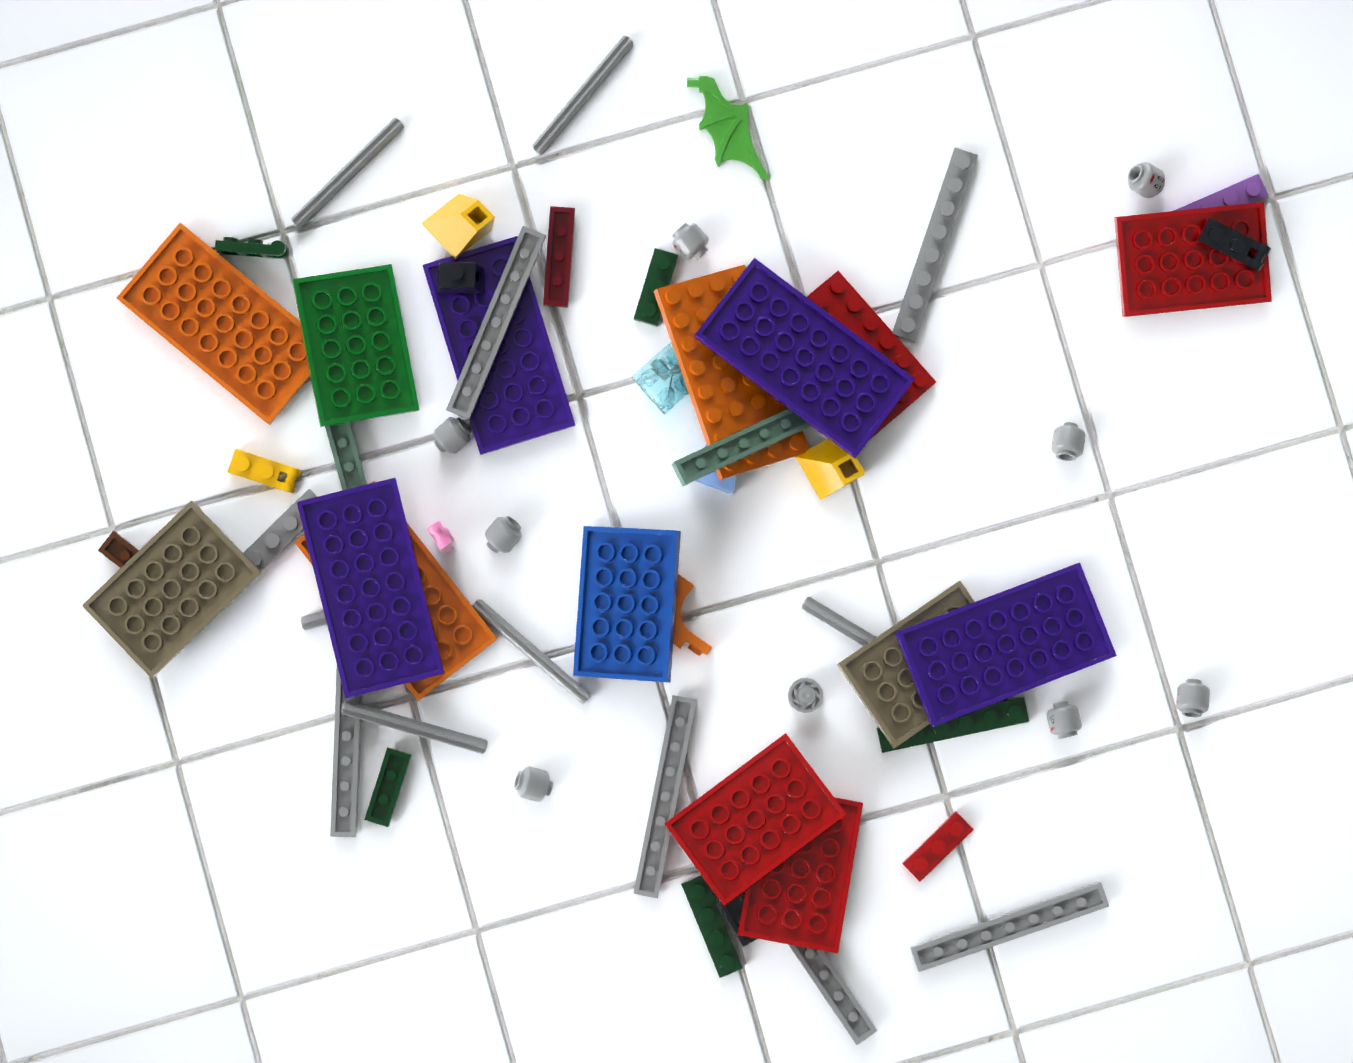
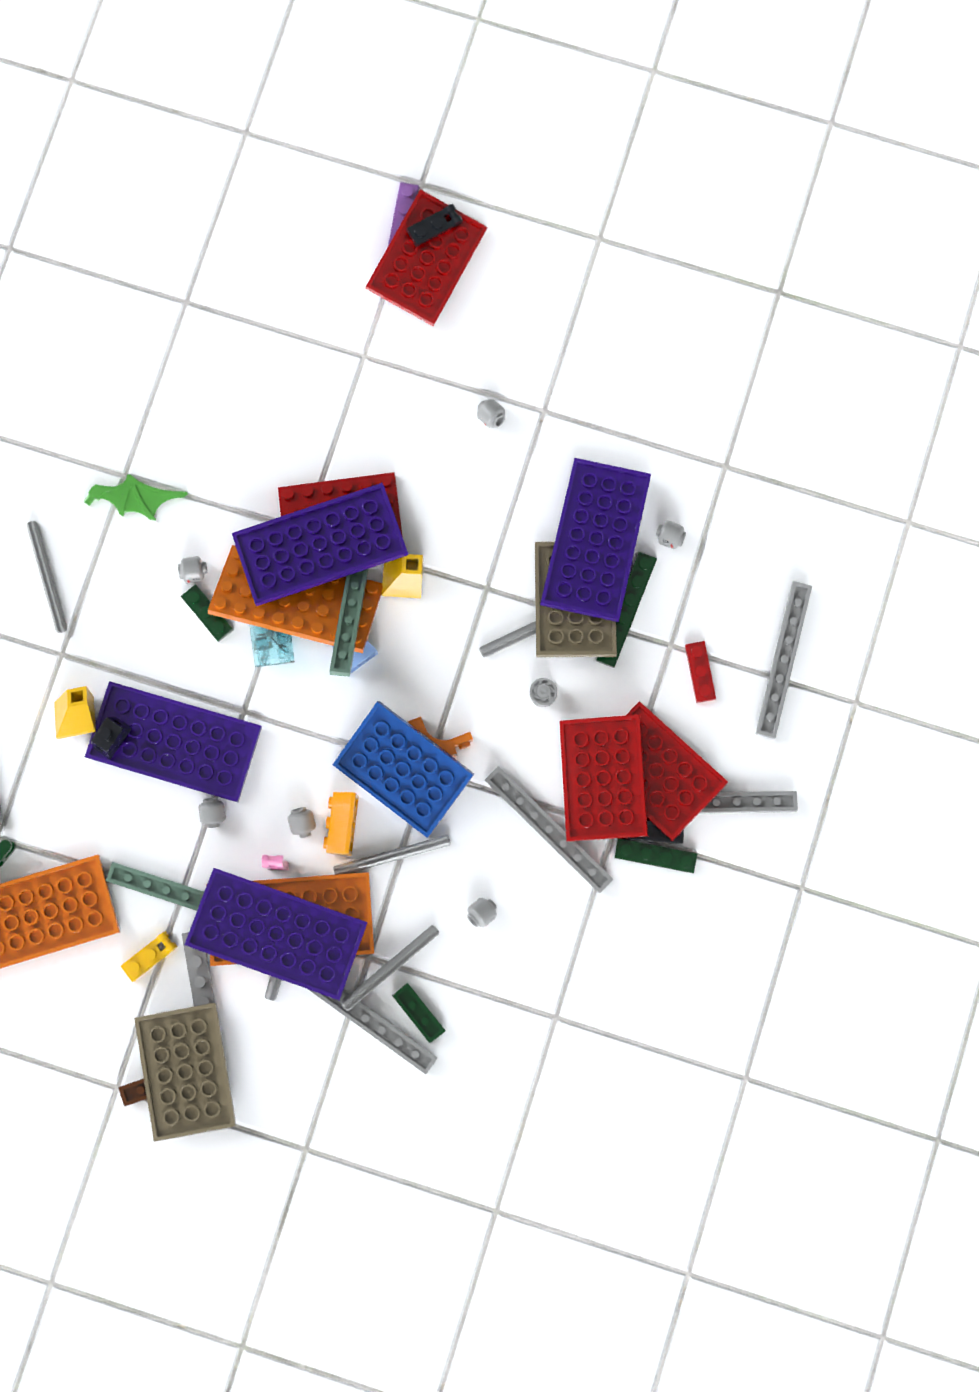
camera: 55 degrees left, 5 degrees down
(355, 345) = (107, 837): green plate -> none
(496, 322) = (157, 732): light grey plate -> none
(528, 577) = (341, 823): none -> light orange slope
(559, 257) = (142, 662): dark red plate -> none
(934, 244) = (304, 415): light grey plate -> none
(1146, 179) = (355, 253): light grey head -> none
(1192, 698) = (711, 443): light grey head -> none

